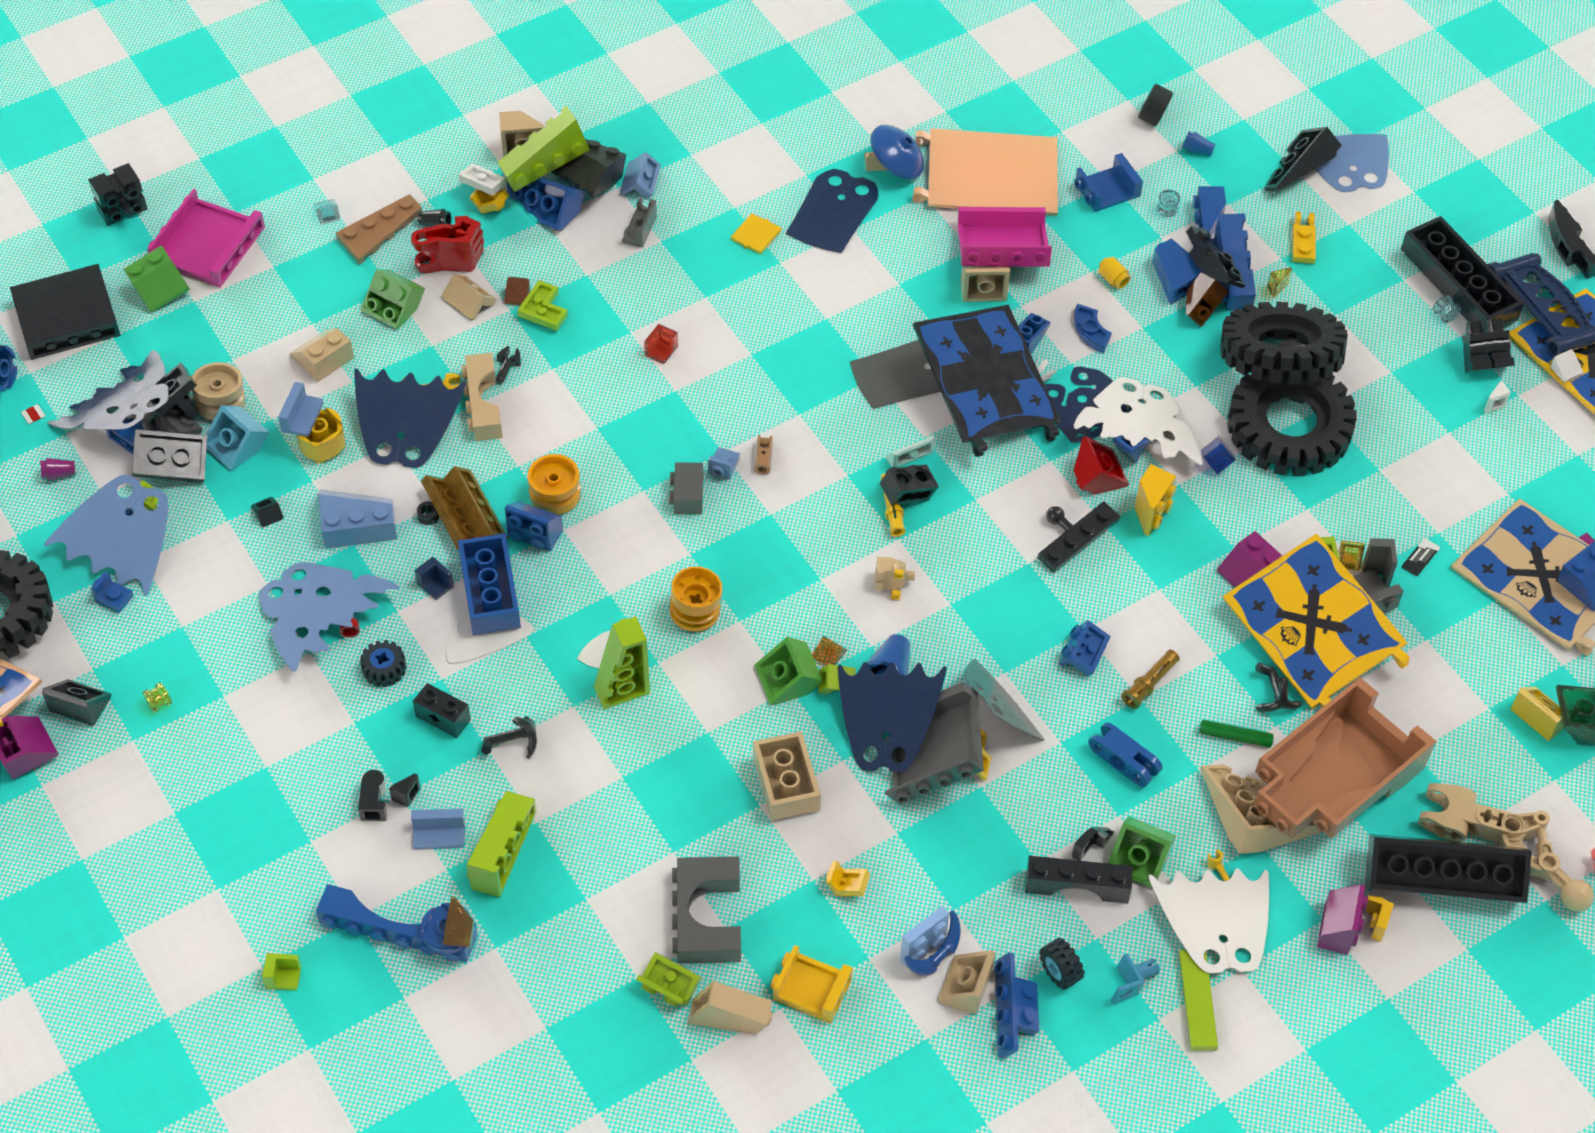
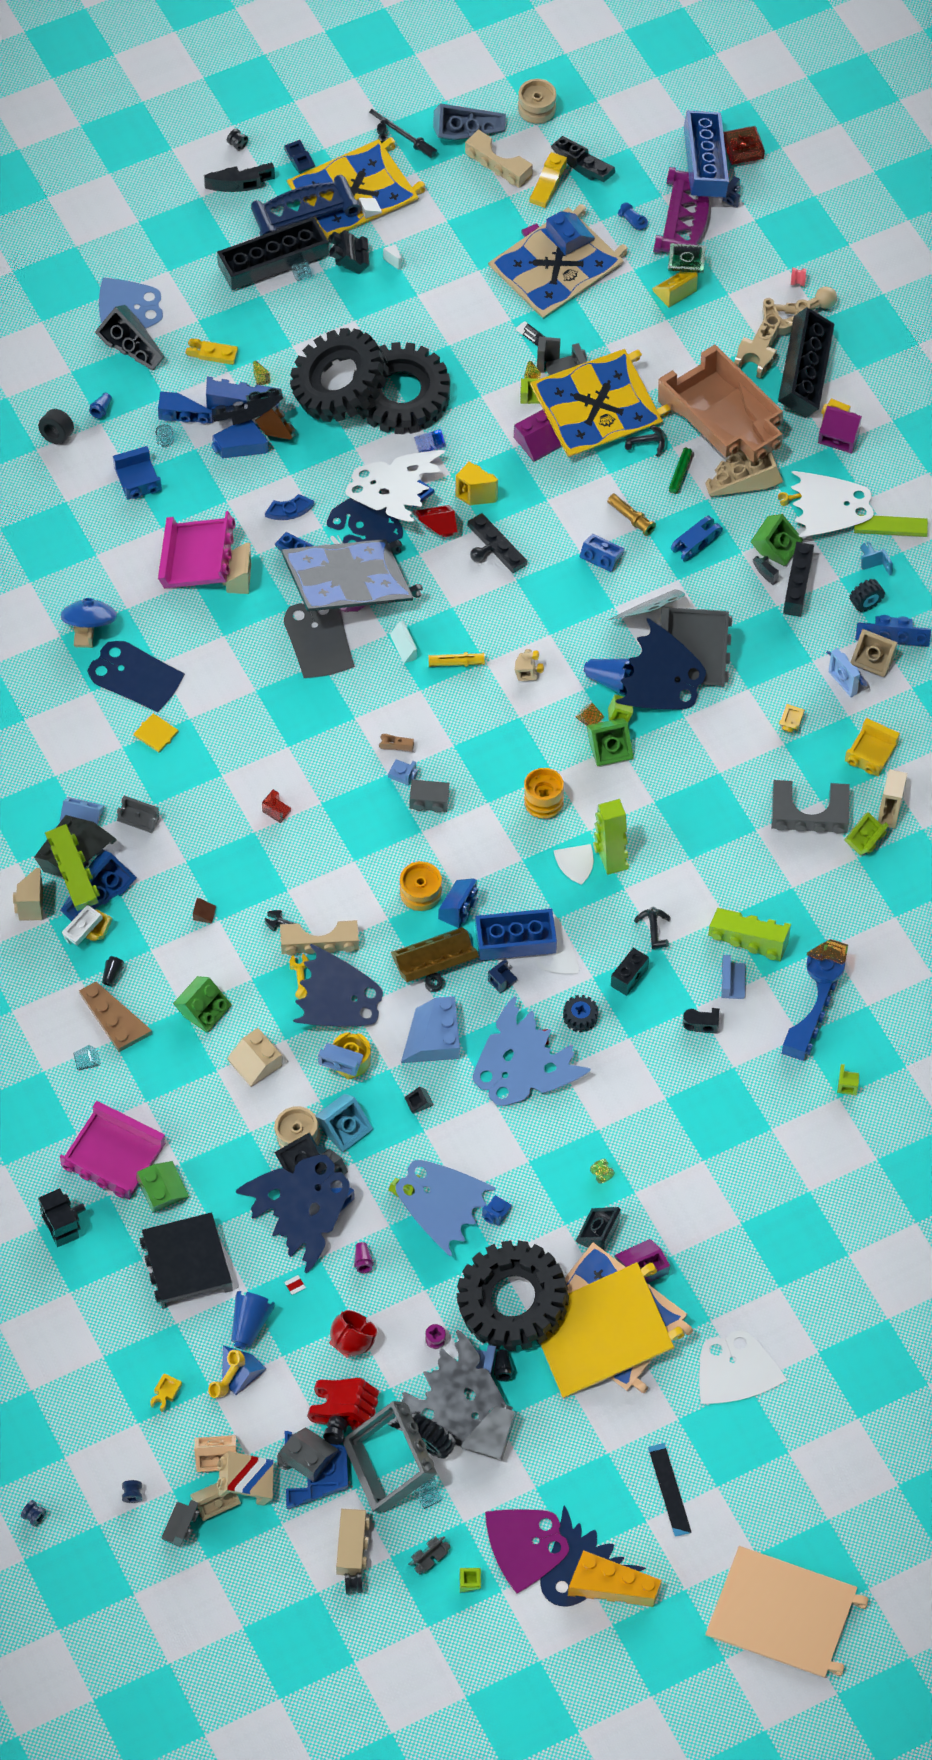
camera: 85 degrees left, 5 degrees up
(169, 456) = (365, 1165): plate -> none
(405, 790) = (699, 997): black slope -> none
(449, 246) = (157, 965): red piece -> none
(467, 295) = (205, 947): tan panel -> none
(539, 306) = (226, 895): lime plate -> none
(786, 776) = (705, 747): tan brick -> none
(908, 484) = (445, 643): black brick -> none
(989, 170) = (108, 556): light nougat flag -> none
(1114, 272) = (236, 482): yellow brick -> none

